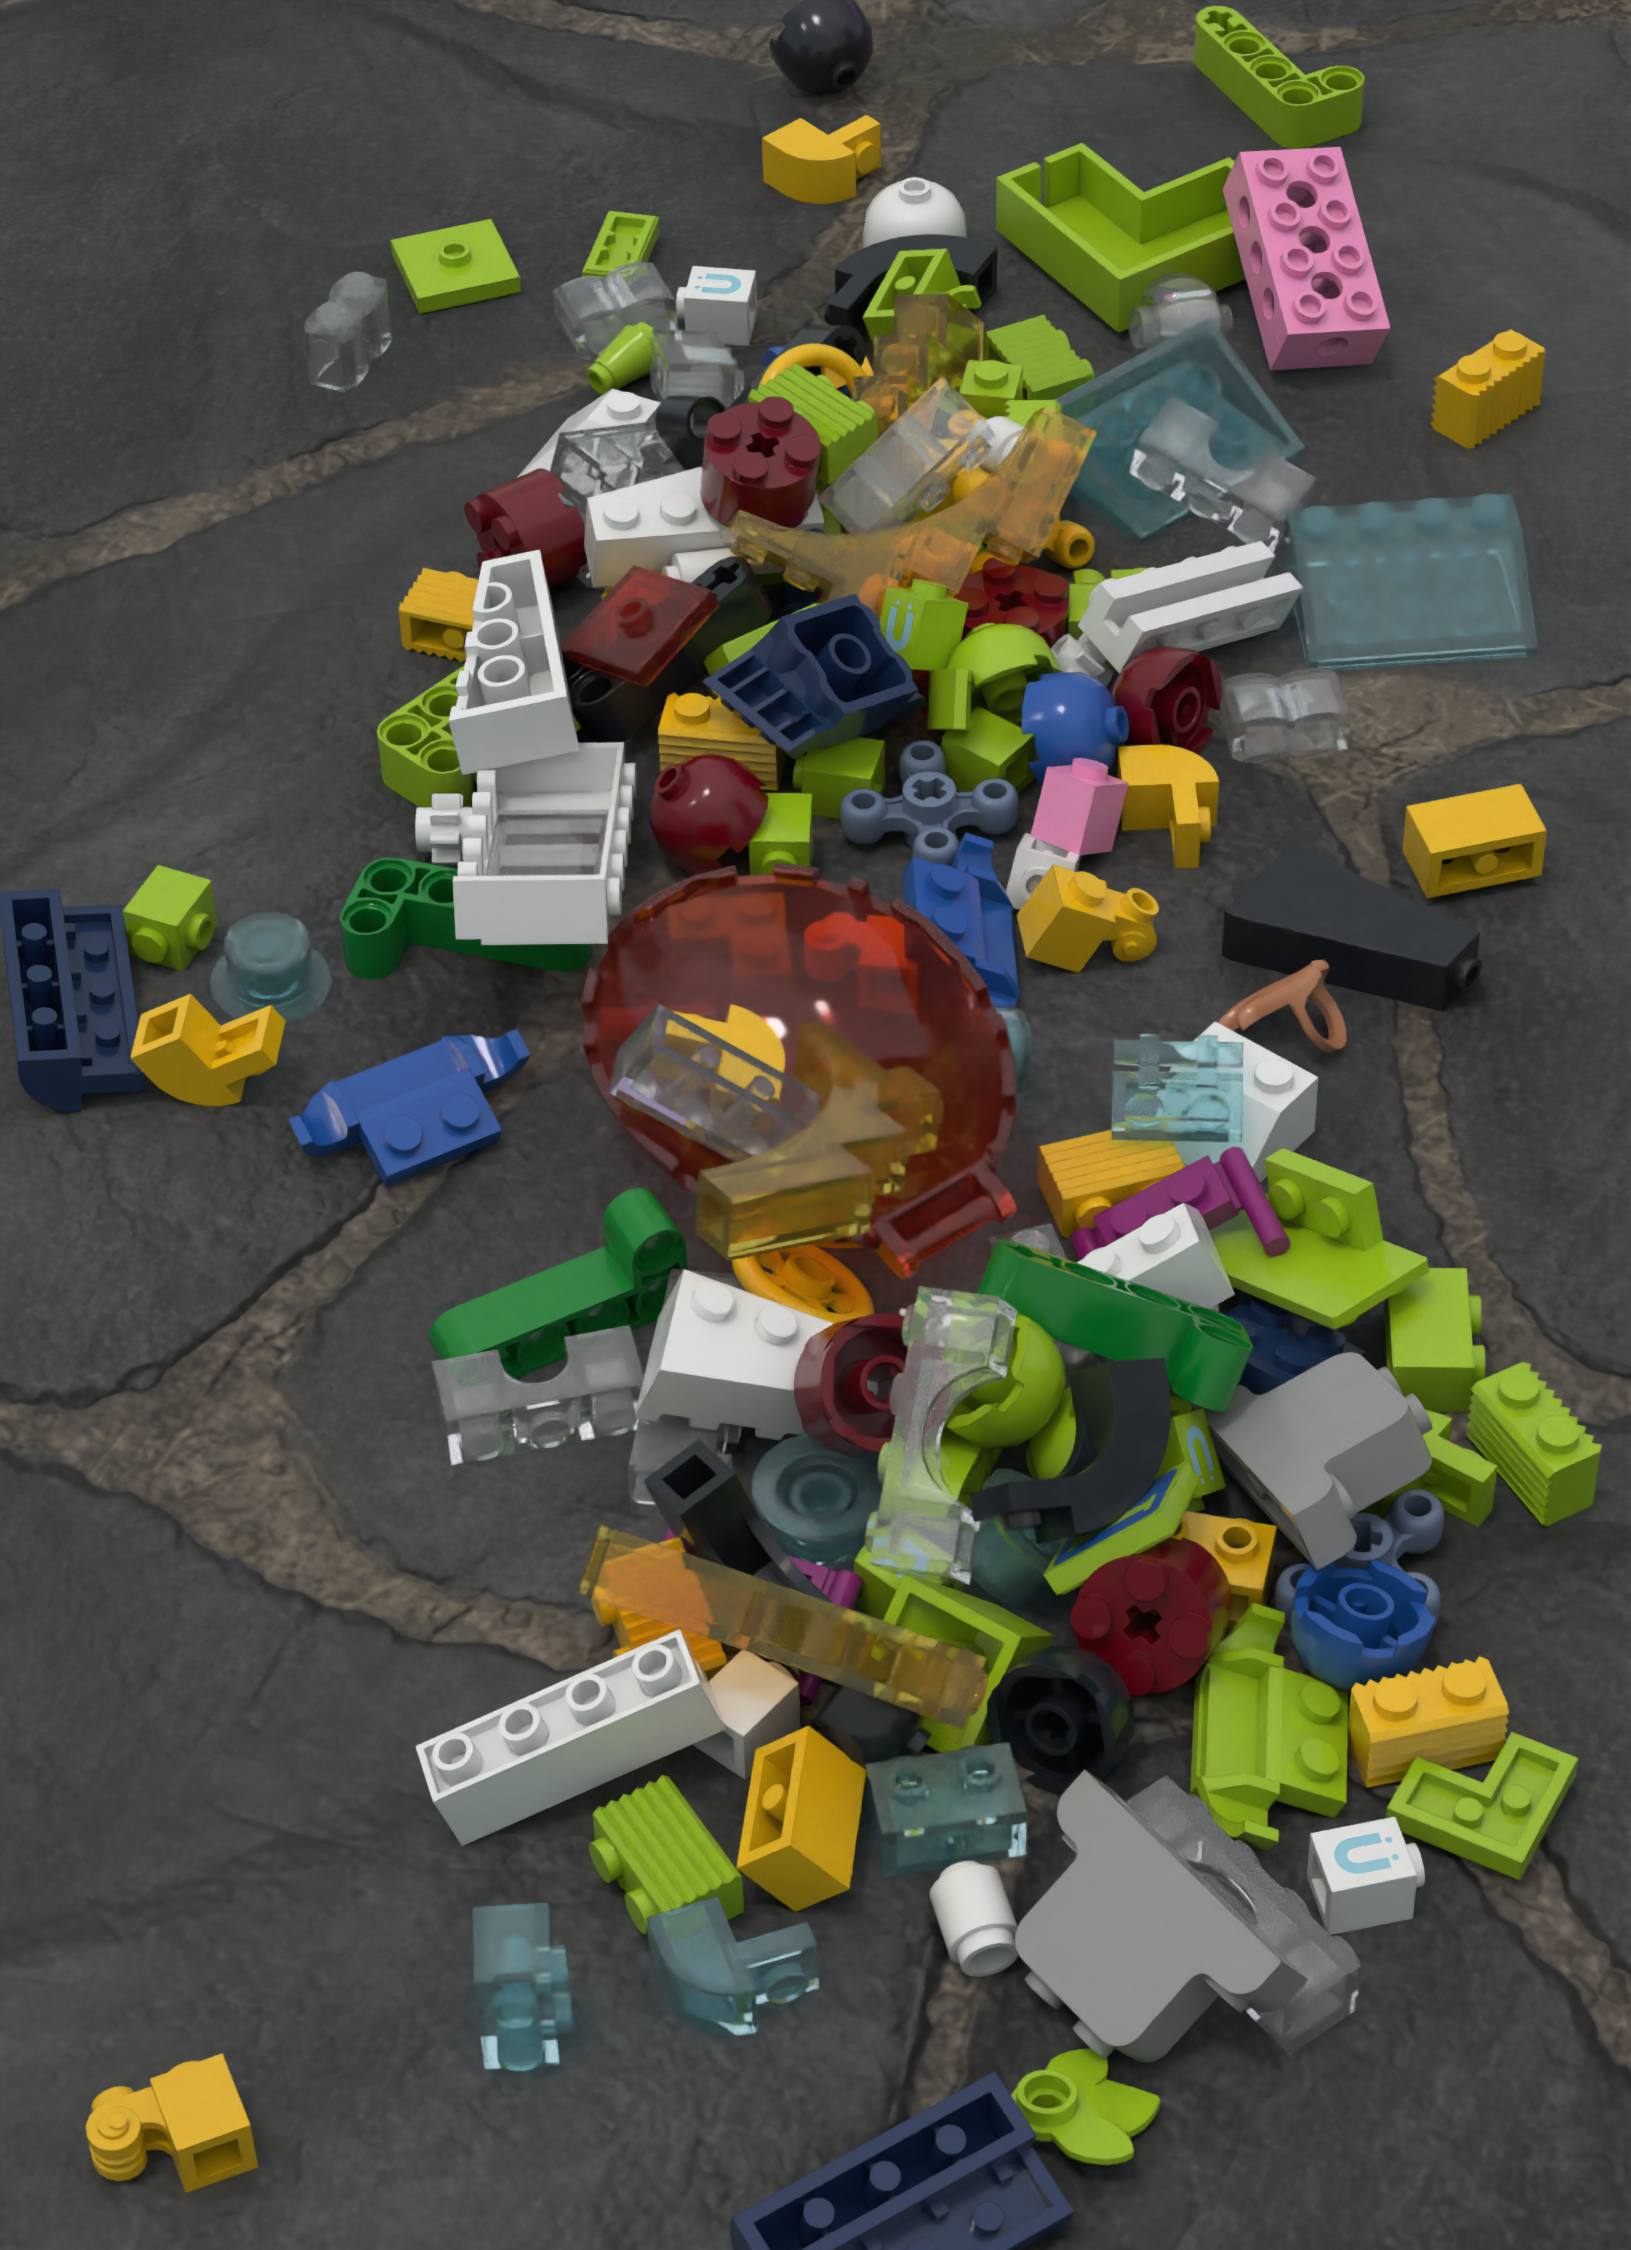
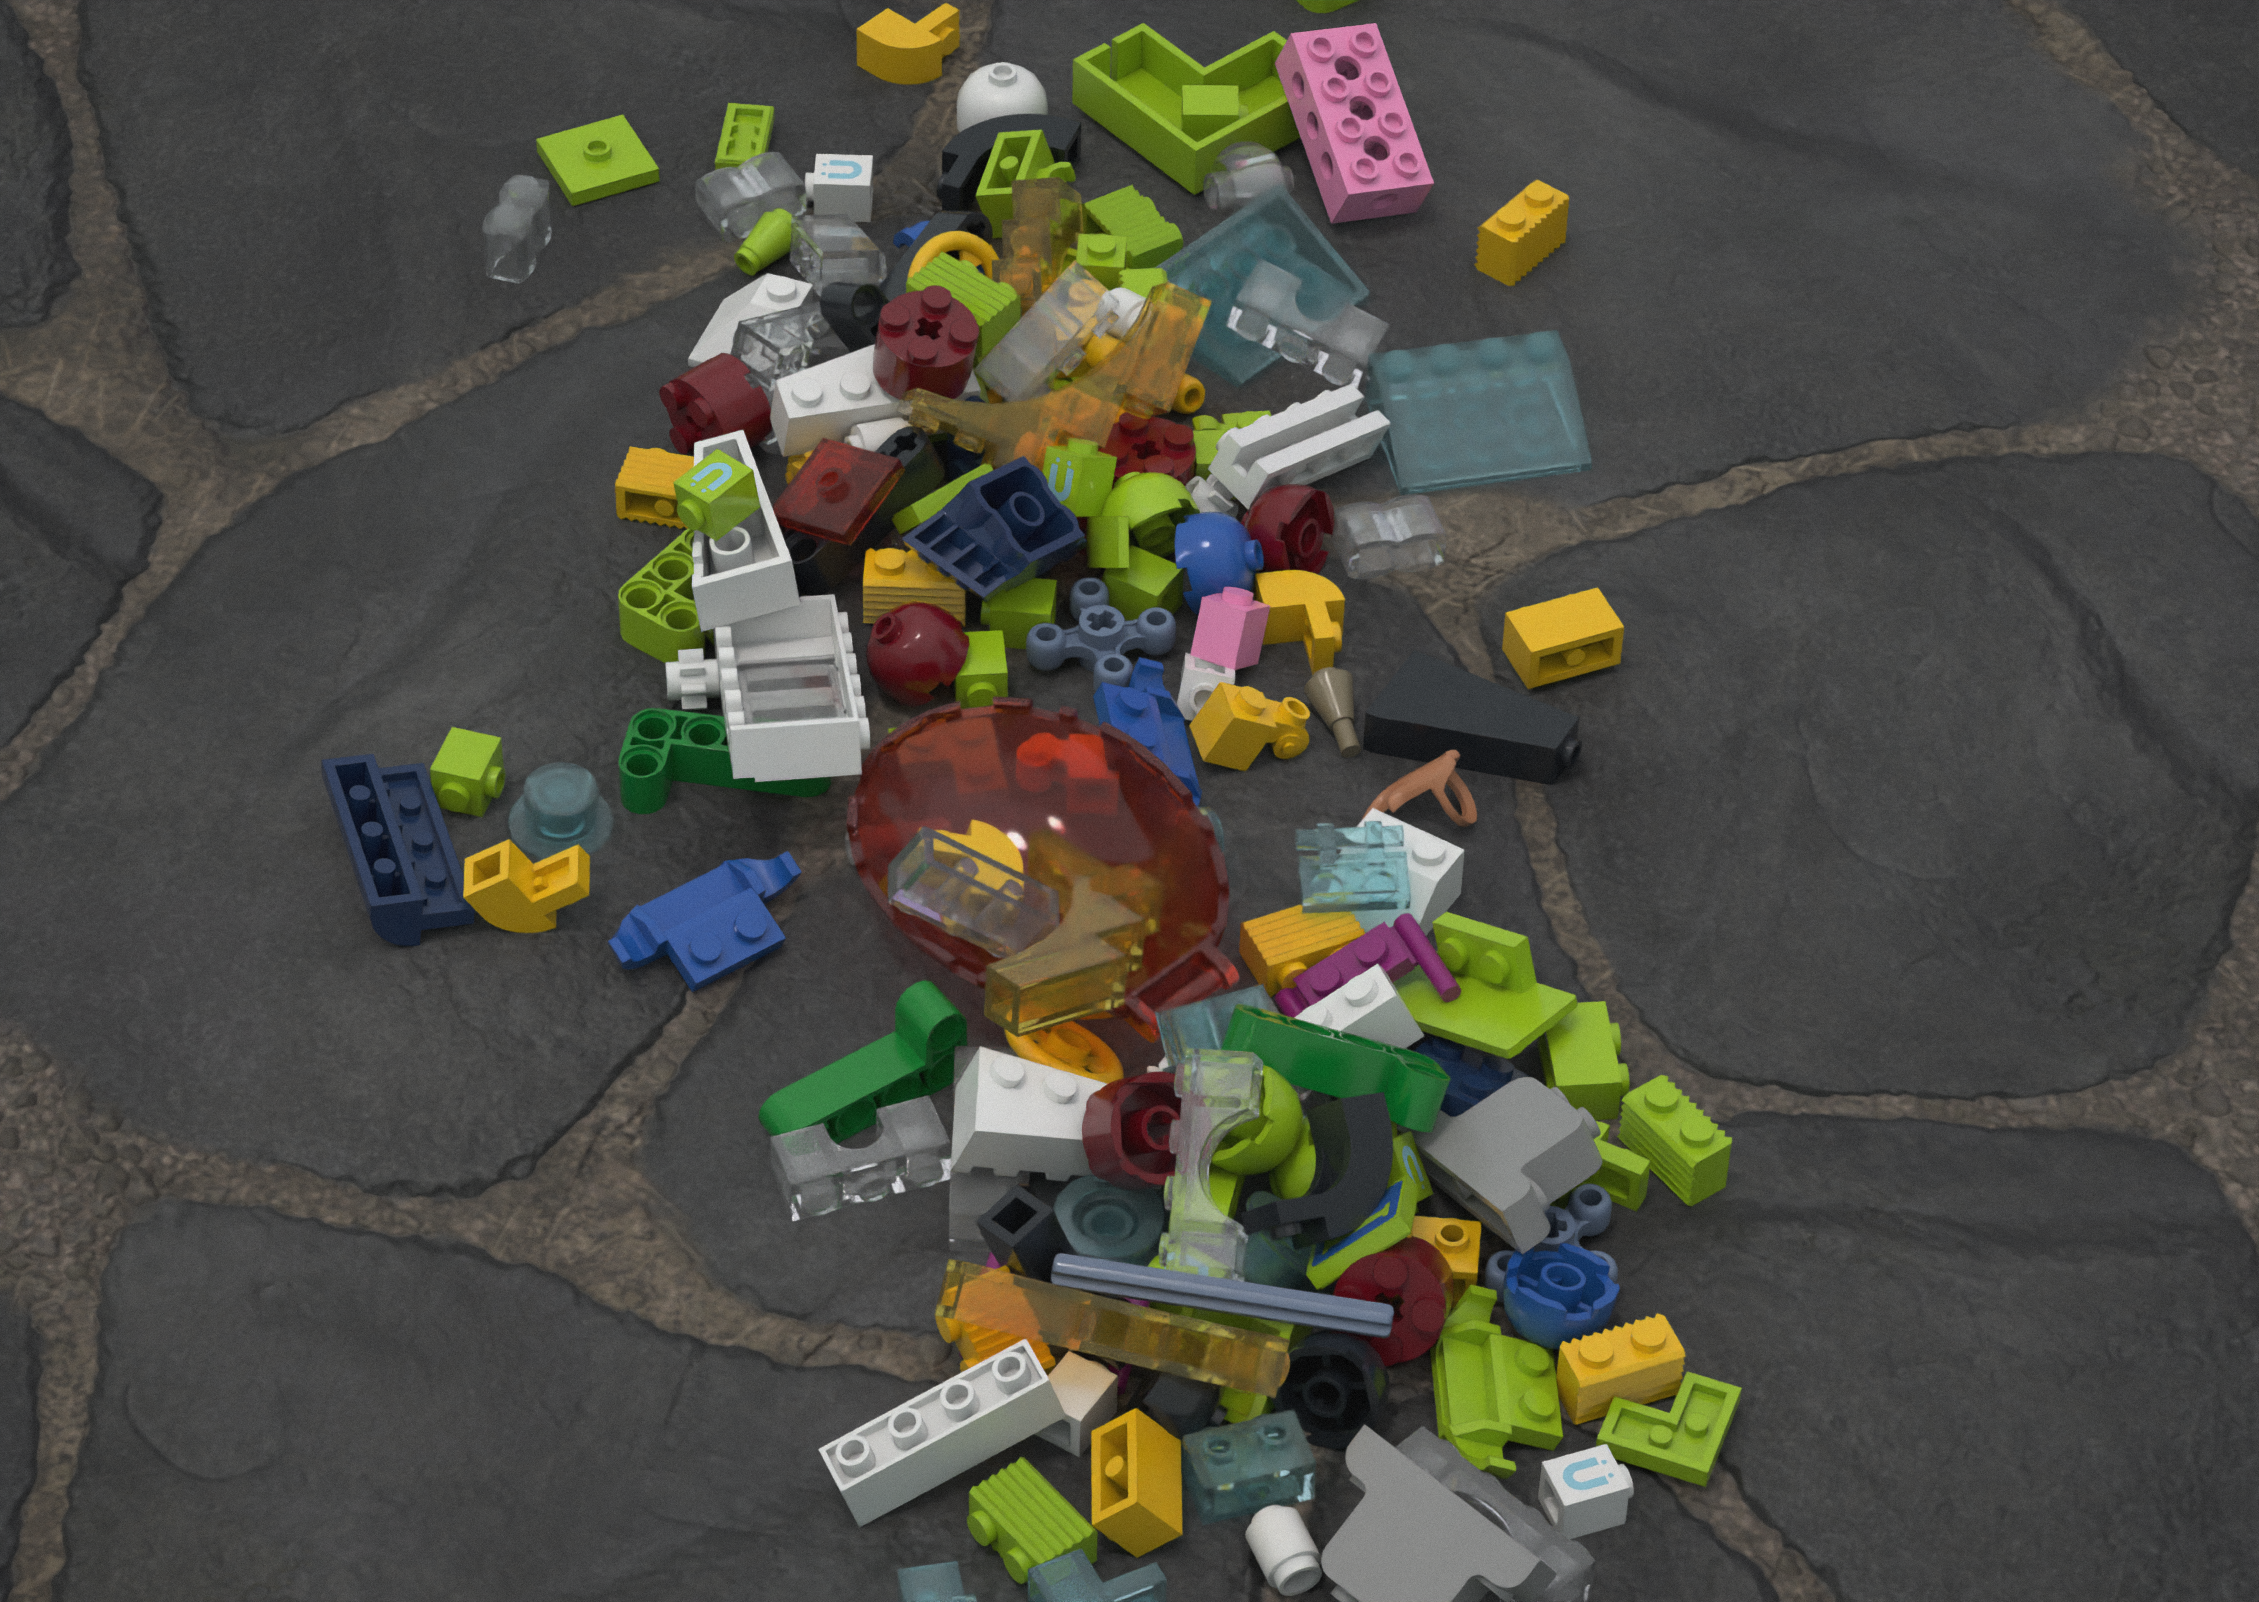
camera: 10 degrees left, 0 degrees up
(490, 617) = (716, 495): none -> lime brick
(936, 1594) = (1223, 1295): none -> sand blue axle
(961, 1259) = (1203, 1021): none -> clear light blue plate
(1143, 236) = (1209, 109): none -> lime brick
(1192, 894) = (1333, 698): none -> dark tan cone

